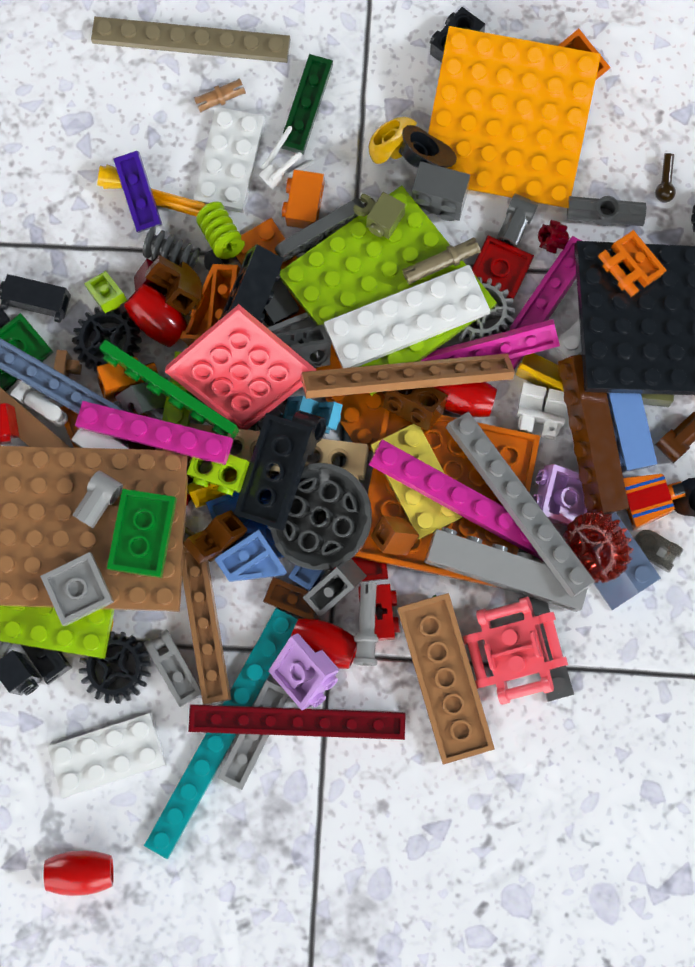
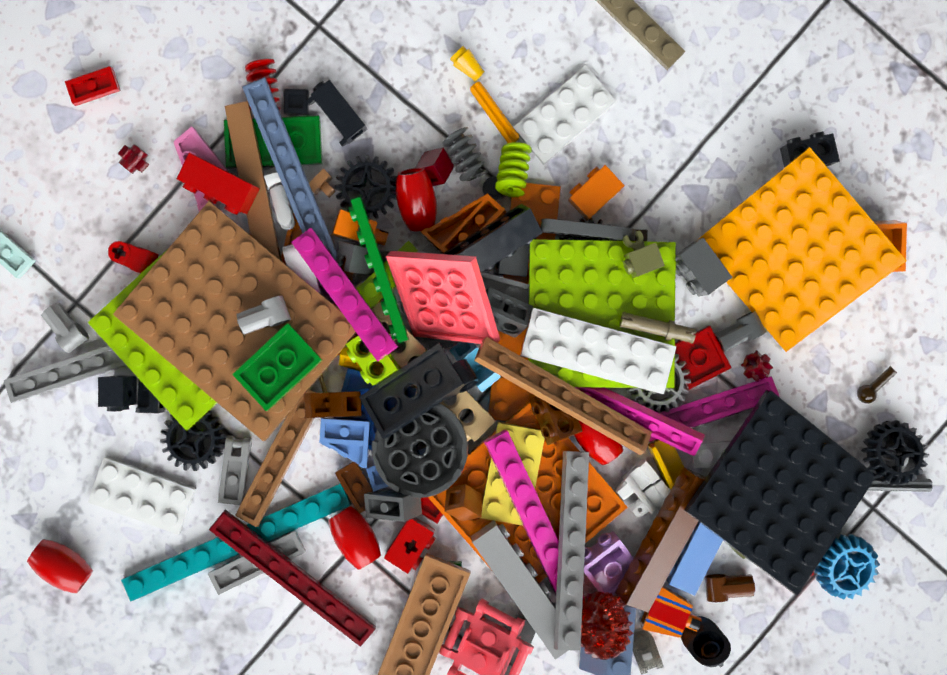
camera: 30 degrees right, 10 degrees up
(77, 589) = (200, 372): light grey plate -> none
(105, 292) = (392, 150): lime plate -> none
(137, 191) = (475, 89): dark purple plate -> none
(180, 281) = (453, 188): reddish brown brick -> none
(219, 95) = (595, 58): medium nougat pin -> none
(275, 175) = (588, 156): white plant -> none
(304, 672) = (322, 551): lavender plate -> none
(307, 102) = (655, 116): dark green plate -> none
(366, 637) = (385, 561): light grey pin -> none
(388, 139) = (696, 196): yellow hat -> none
(425, 148) = (715, 228): black piece -> none
(622, 211) = (822, 386): dark grey piece -> none
(637, 258) = (804, 441): orange plate -> none

